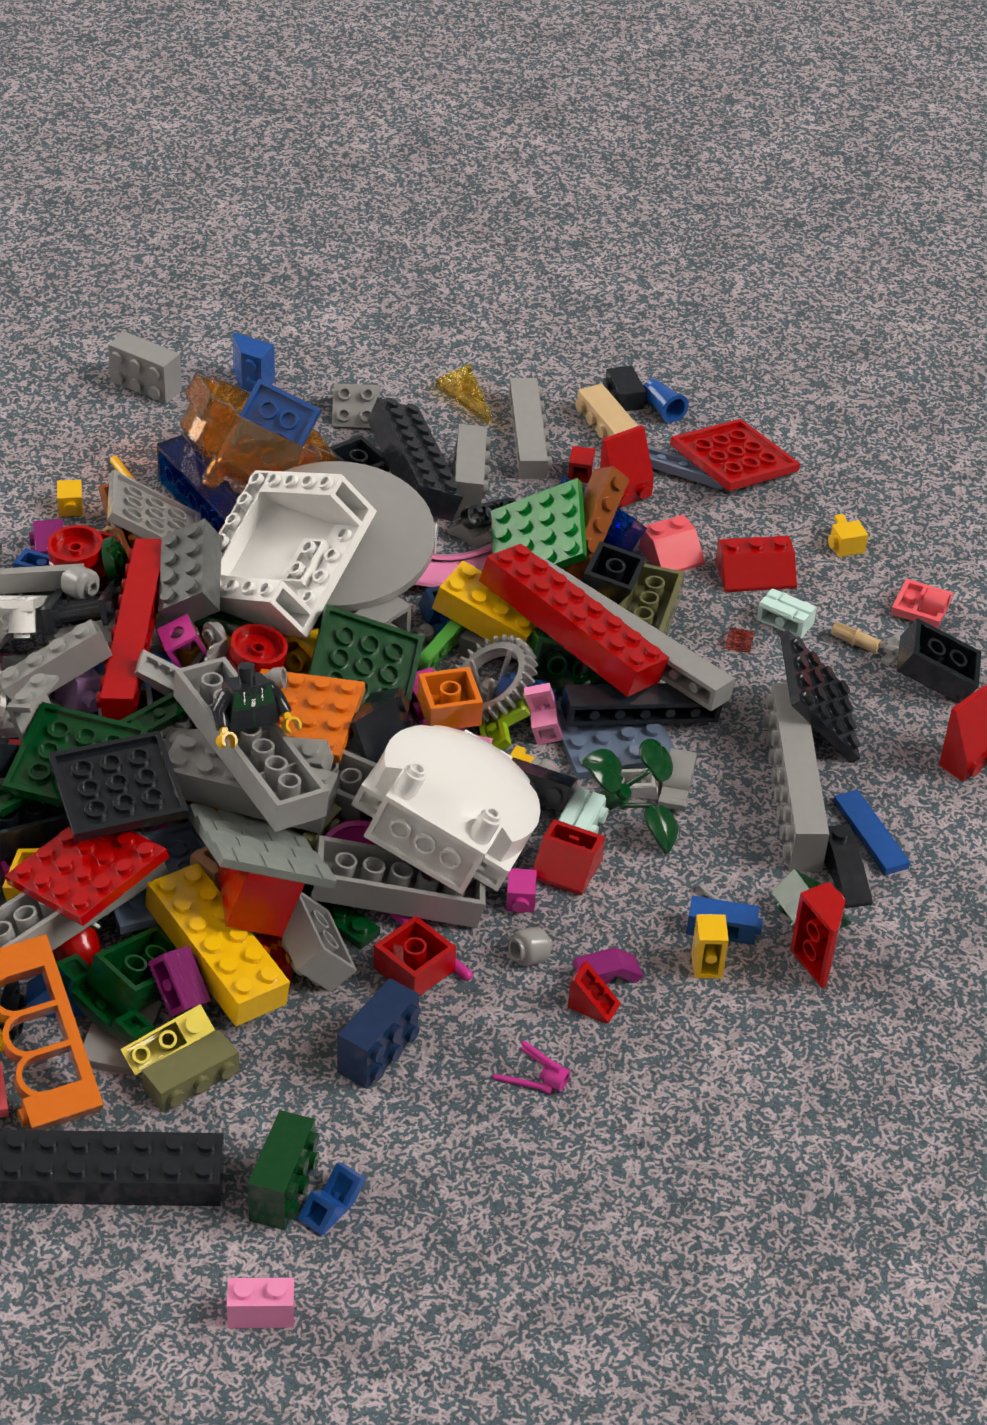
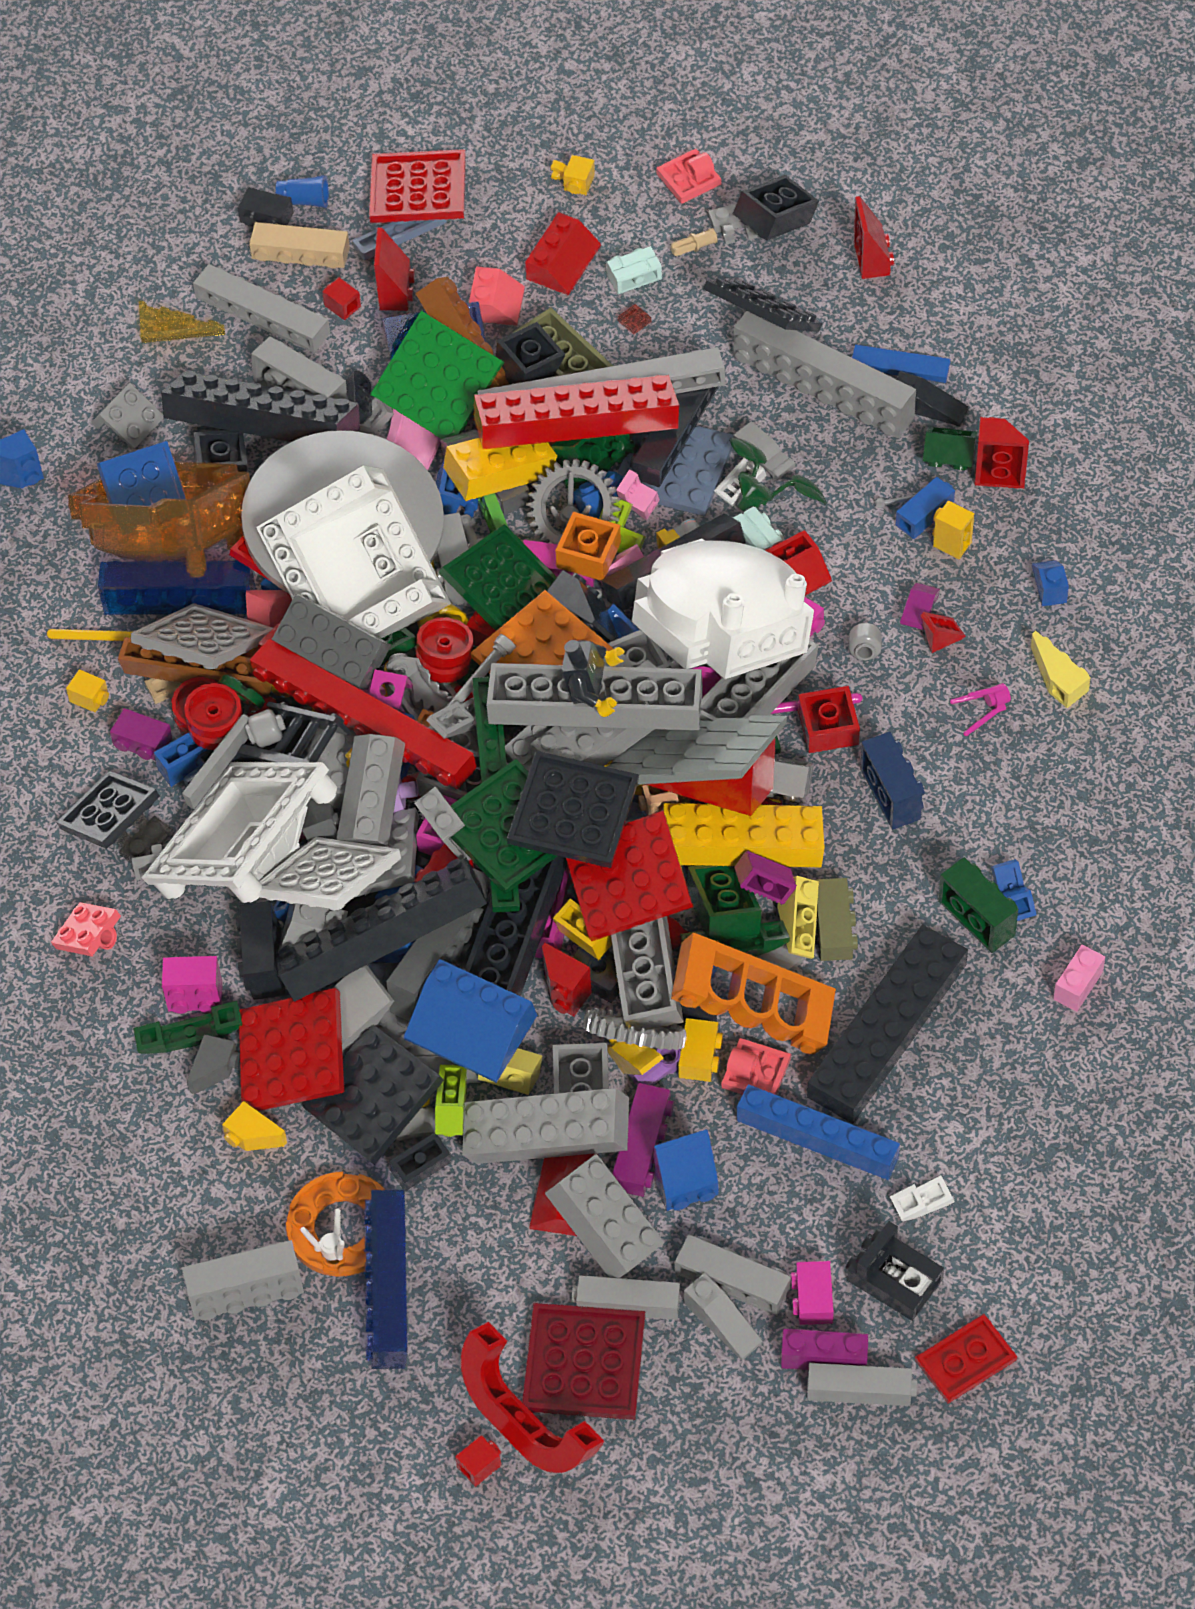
camera: 50 degrees left, 15 degrees up
(620, 1111) = (1061, 676): none -> light yellow slope
(725, 1054) = (1051, 582): none -> blue slope

